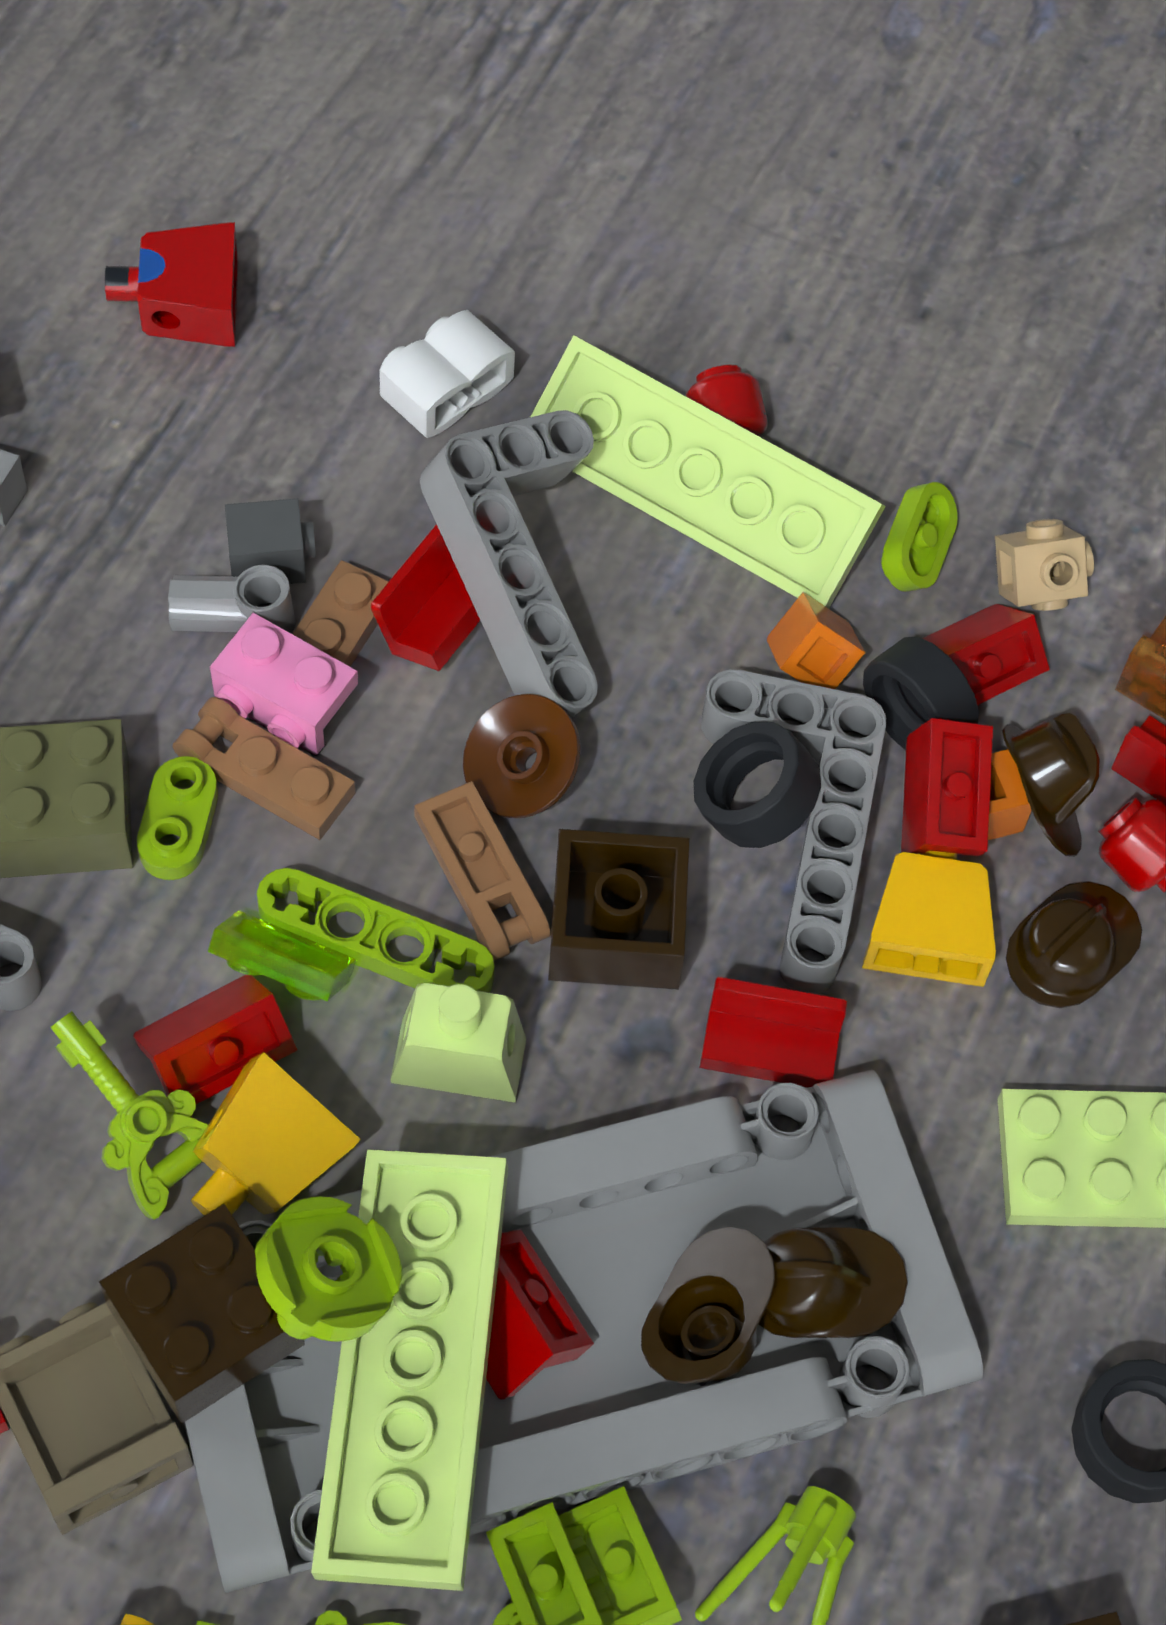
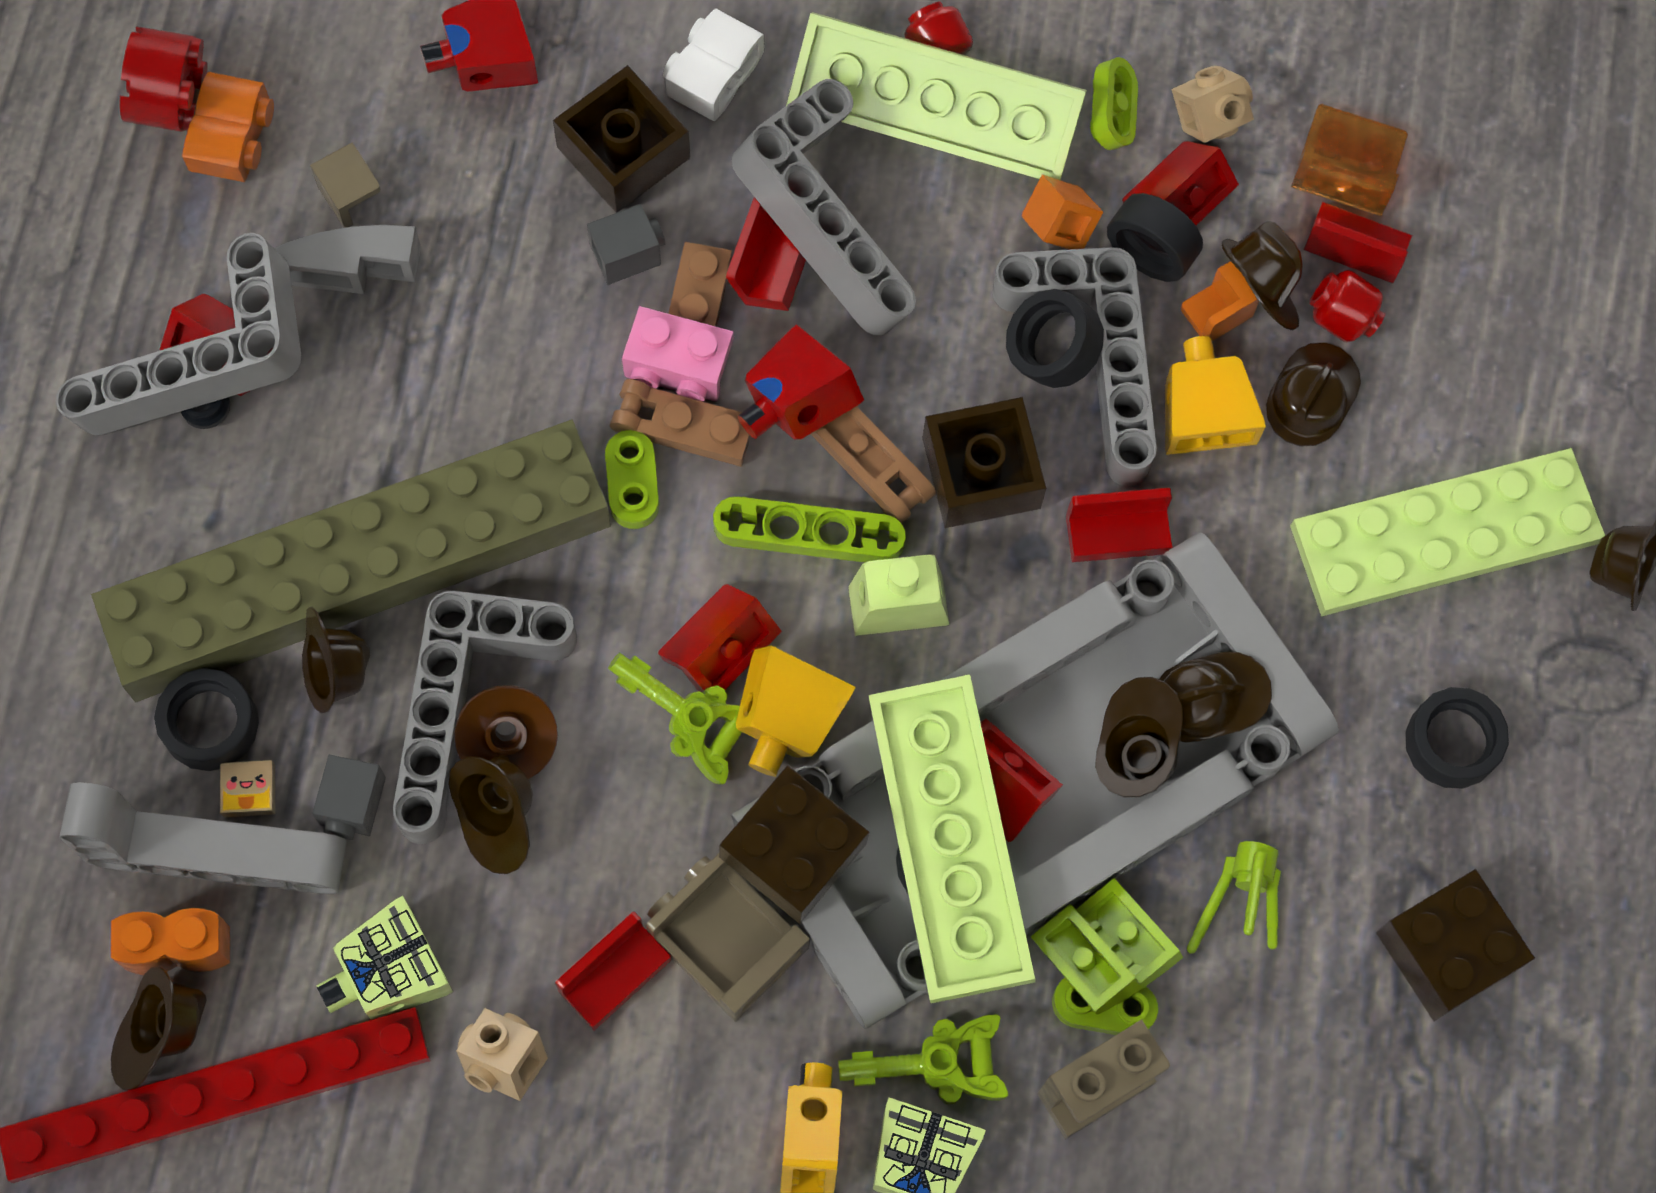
camera: 15 degrees left, 10 degrees up
(228, 601) = (610, 300): light grey piece -> none
(271, 951) = (747, 564): clear neon green plate -> none
(304, 422) = (622, 138): none -> dark brown brick
(305, 1298) = (860, 810): lime plate -> none
(415, 759) = (798, 388): none -> red torso
(503, 742) = (865, 339): reddish brown dish -> none
(947, 788) = (1195, 306): red panel -> none

